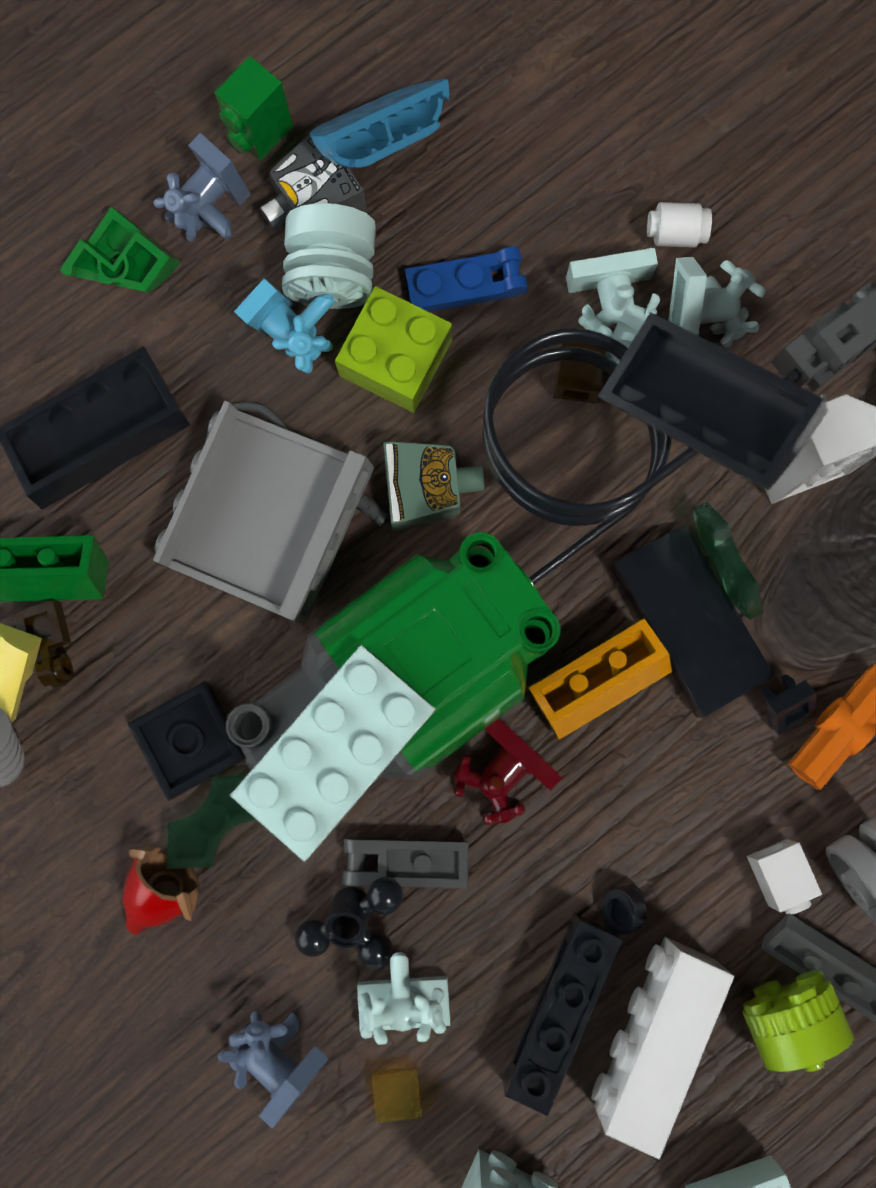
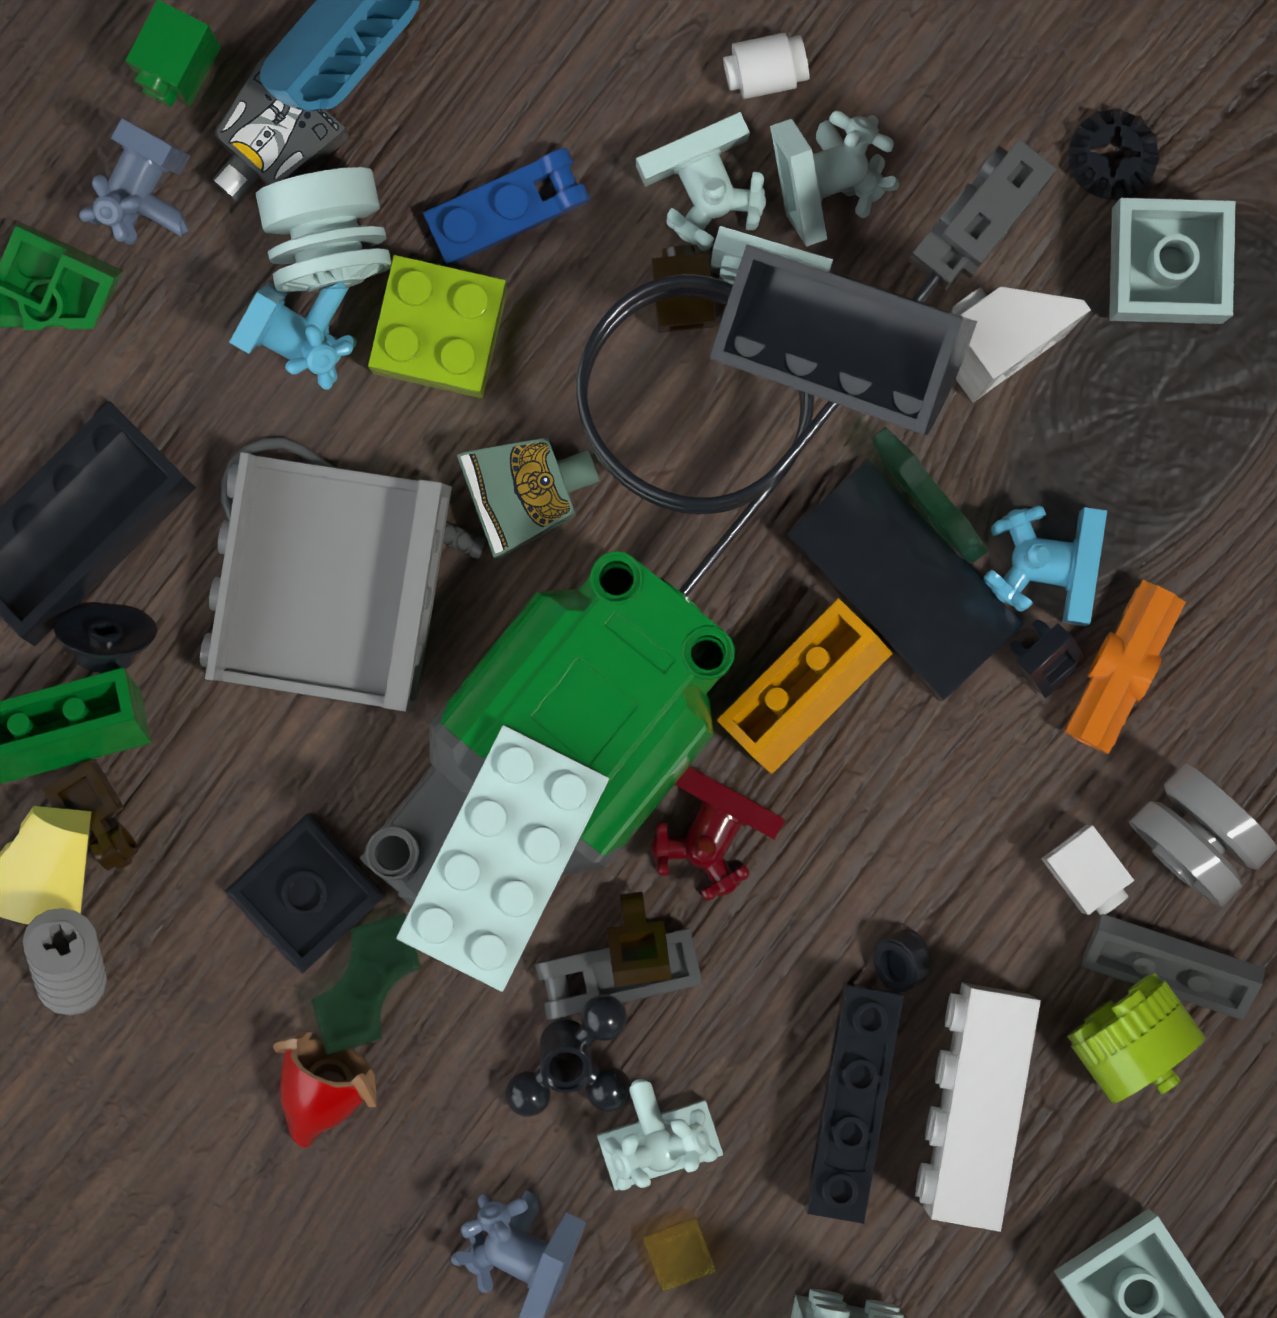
camera: 20 degrees left, 5 degrees up
(90, 511) = (105, 634): none -> black piece
(425, 847) = (639, 946): none -> dark brown plate
(822, 639) = (1051, 562): none -> medium azure piece

